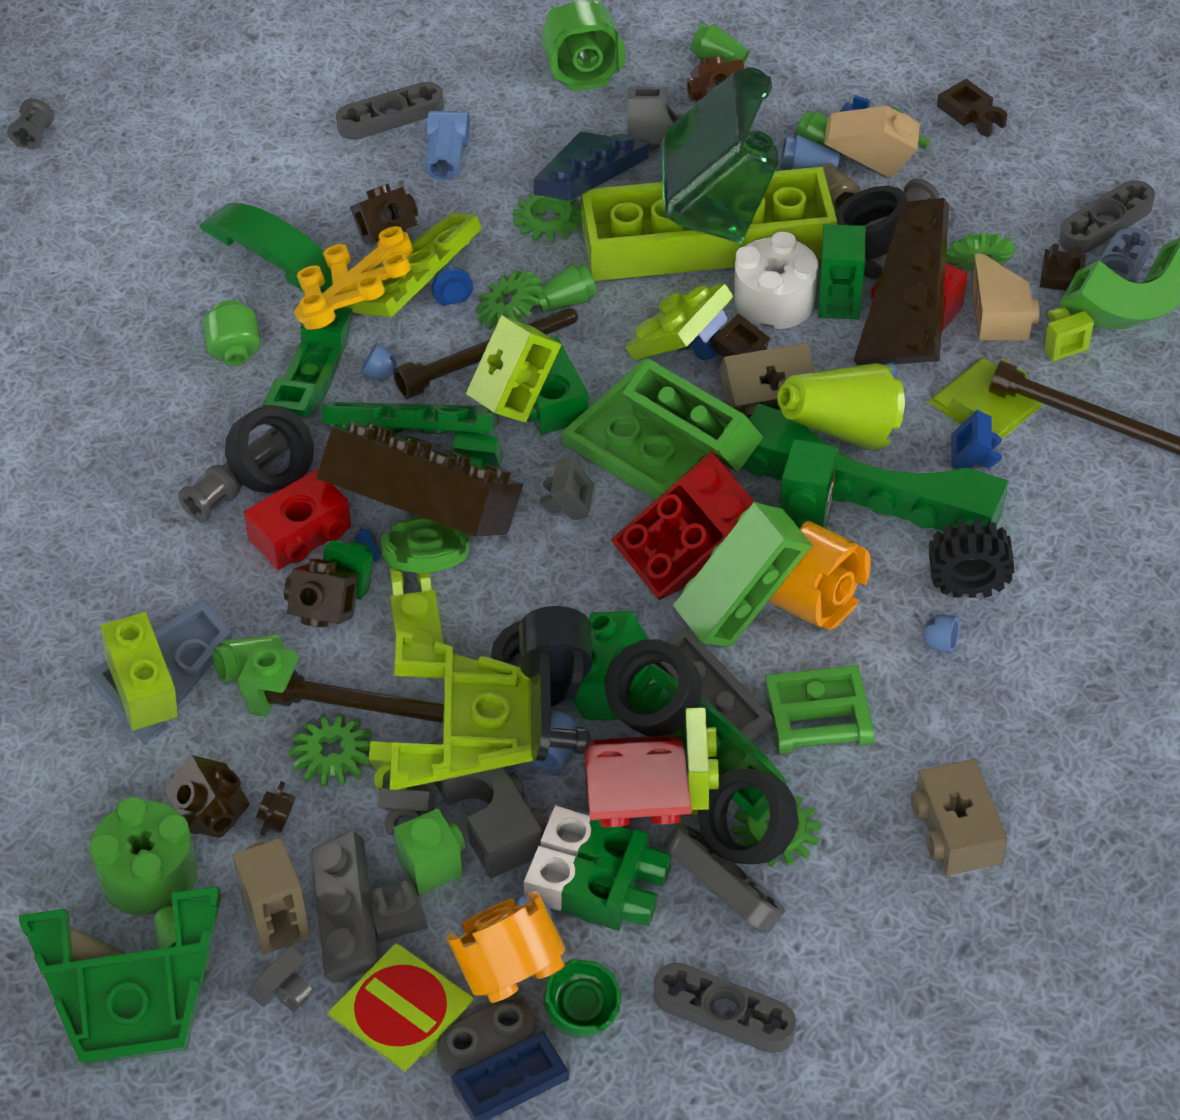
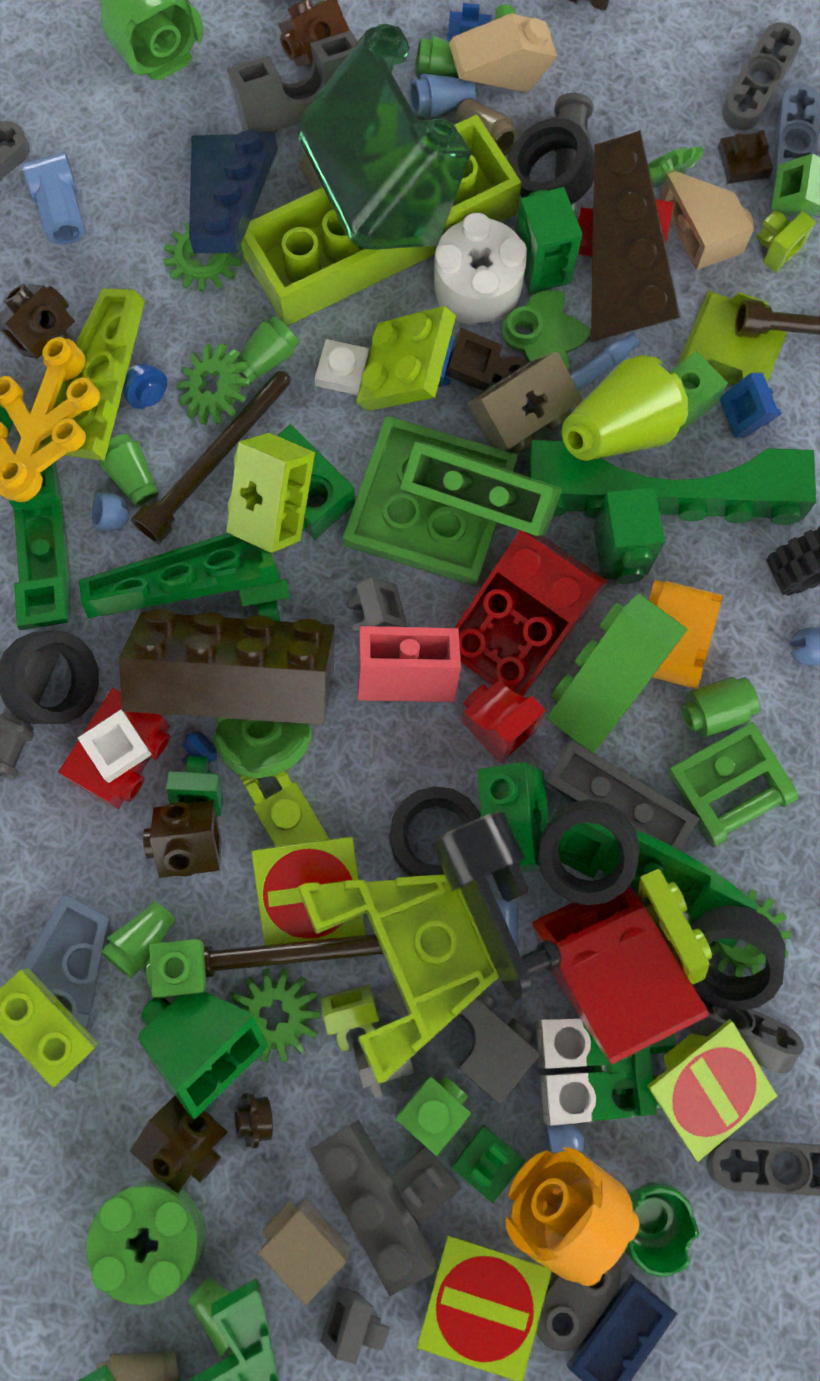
camera: 25 degrees left, 25 degrees up
(252, 732) = (199, 1045): none -> green torso
(298, 500) = (114, 746): none -> white plate
(377, 657) = (285, 868): none -> piece
(409, 335) = (129, 469): none -> bright green cone
(454, 908) = (488, 1163): none -> green tile
(570, 529) = (408, 664): none -> coral brick
(623, 319) = (341, 366): none -> white plate
(636, 589) = (501, 718): none -> red arch
(680, 908) = (711, 1088): none -> piece
(823, 338) = (548, 326): none -> bright green plate
(834, 645) = (720, 706): none -> bright green brick
(925, 418) = (702, 385): none -> bright green brick

